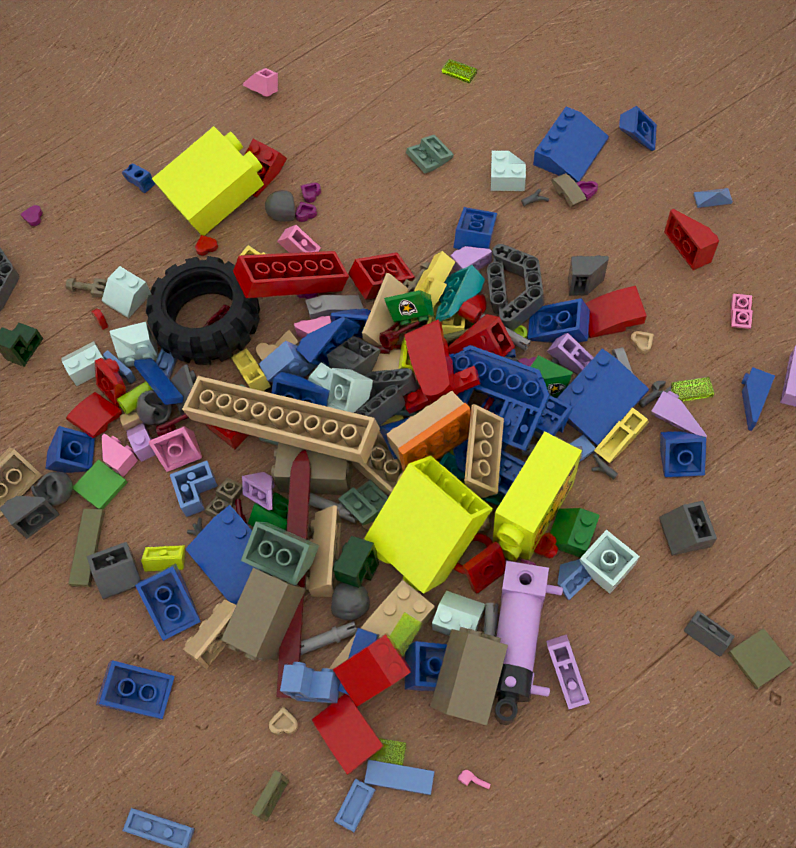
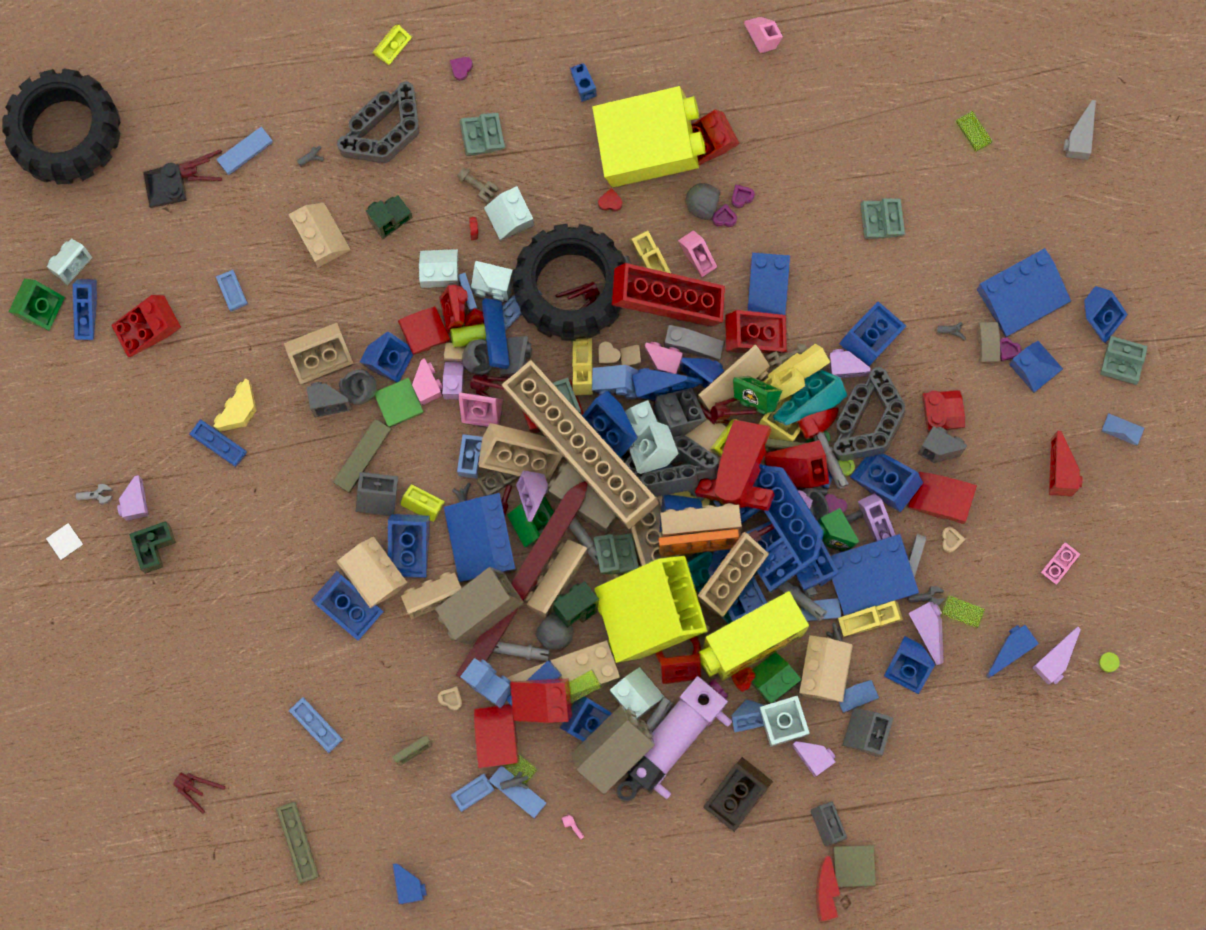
camera: 25 degrees right, 15 degrees up
(73, 251) = (482, 134): none -> sand green slope
(134, 380) = (475, 317): none -> red tile
(143, 643) = (372, 572): none -> tan slope
(226, 462) = (517, 450): none -> tan slope
(279, 552) = (518, 562): sand green slope -> none
(368, 233) = (768, 283): none -> blue slope
(392, 767) = (515, 782): none -> dark grey bar
(507, 172) = (943, 287): light aqua slope -> none
(540, 36) = (1080, 139): none -> light grey slope
(560, 252) = (944, 410): none -> red slope
(567, 672) = (695, 787): lavender slope -> none
(610, 654) = (738, 794): none -> dark brown slope
(614, 496) = (826, 669): none -> tan slope
(615, 190) = (1035, 366): none -> blue slope
(654, 506) = (858, 695): none -> medium blue slope
(655, 578) = (814, 756): none -> lavender slope
(677, 153) = (1123, 360): none -> sand green slope
(754, 694) = (825, 891): none -> red slope

